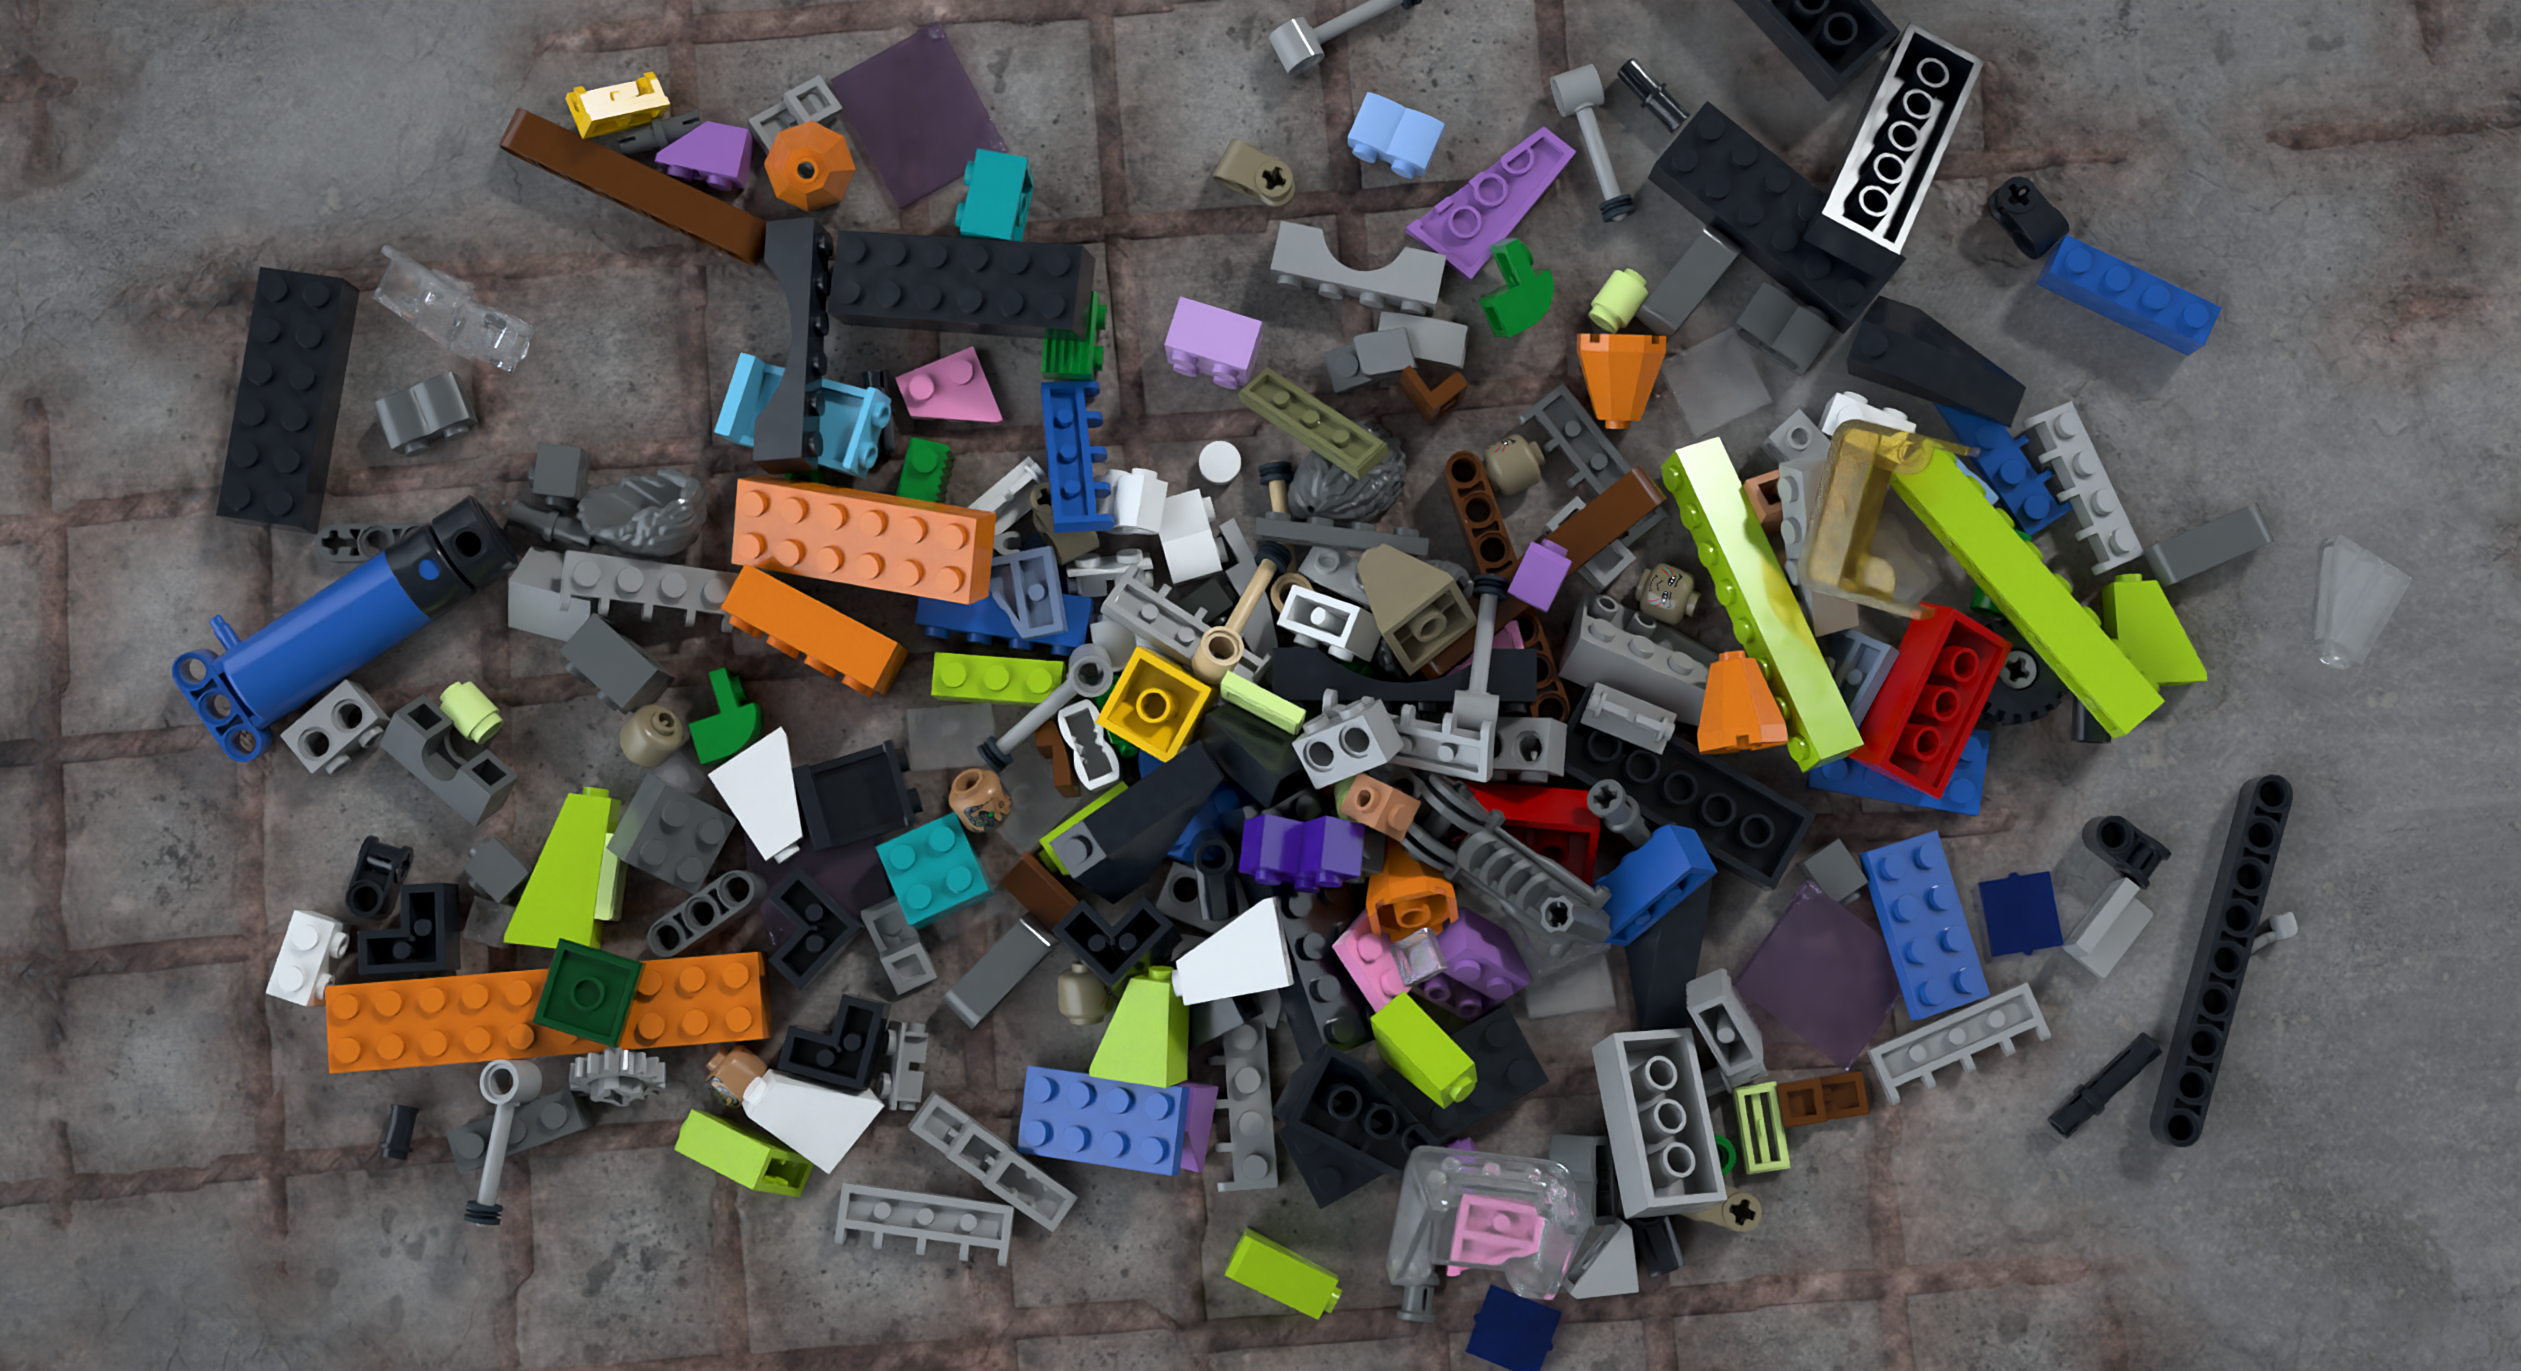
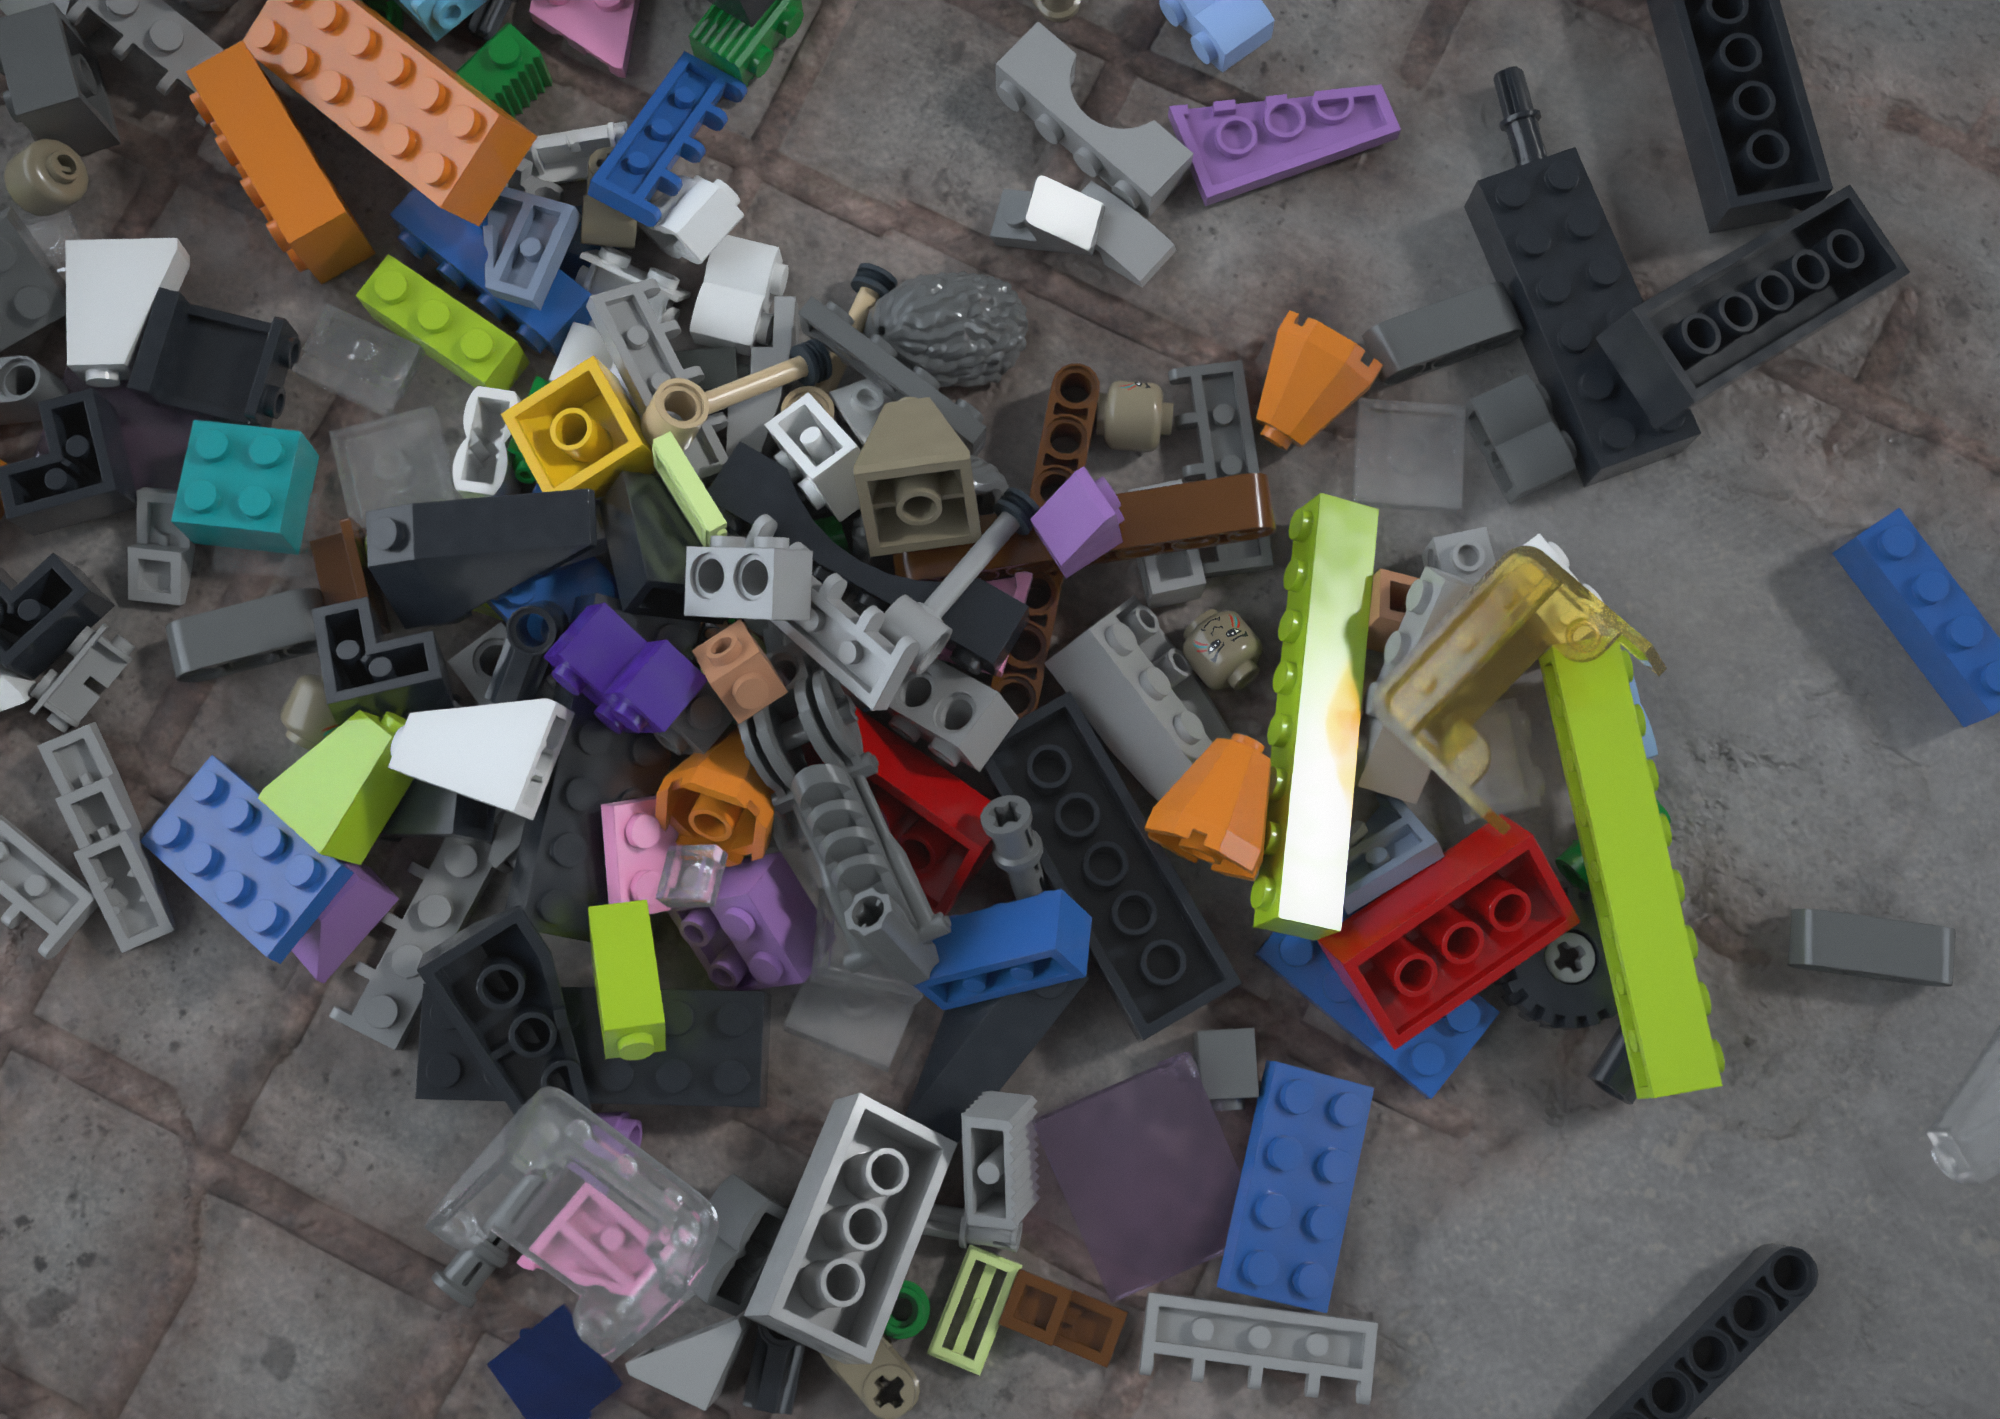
camera: 25 degrees right, 5 degrees down
(734, 729) = (142, 211): green brick -> none
(980, 800) = (335, 435): medium nougat head -> none
(997, 752) = (386, 396): light grey piece -> none
(1053, 746) = (448, 418): reddish brown slope -> none
(1213, 343) = (887, 105): lavender brick -> none
(1220, 463) = (823, 241): white tile -> none
(1283, 1275) = (330, 1147): lime slope -> none
(1313, 423) = (941, 245): olive tile -> none
(1433, 403) = (1094, 296): reddish brown panel -> none
(1525, 294) = (1257, 243): green brick -> none
(1577, 94) = (1438, 74): light grey piece -> none
(1618, 300) = (1356, 306): yellowish green brick -> none
(1629, 718) = (1090, 749): light grey hinge -> none
(1922, 358) = (1661, 561): black wedge -> none
(2007, 470) = (1685, 714): blue hinge -> none
(2020, 913) = (1417, 1241): clear blue piece -> none
(2031, 220) = (1864, 475): black piece -> none
(2086, 486) = (1765, 802): light grey hinge -> none
(2108, 928) = (1509, 1318): light grey panel -> none
(2132, 851) = (1587, 1246): black piece -> none
(2149, 629) = (1750, 1005): lime slope -> none

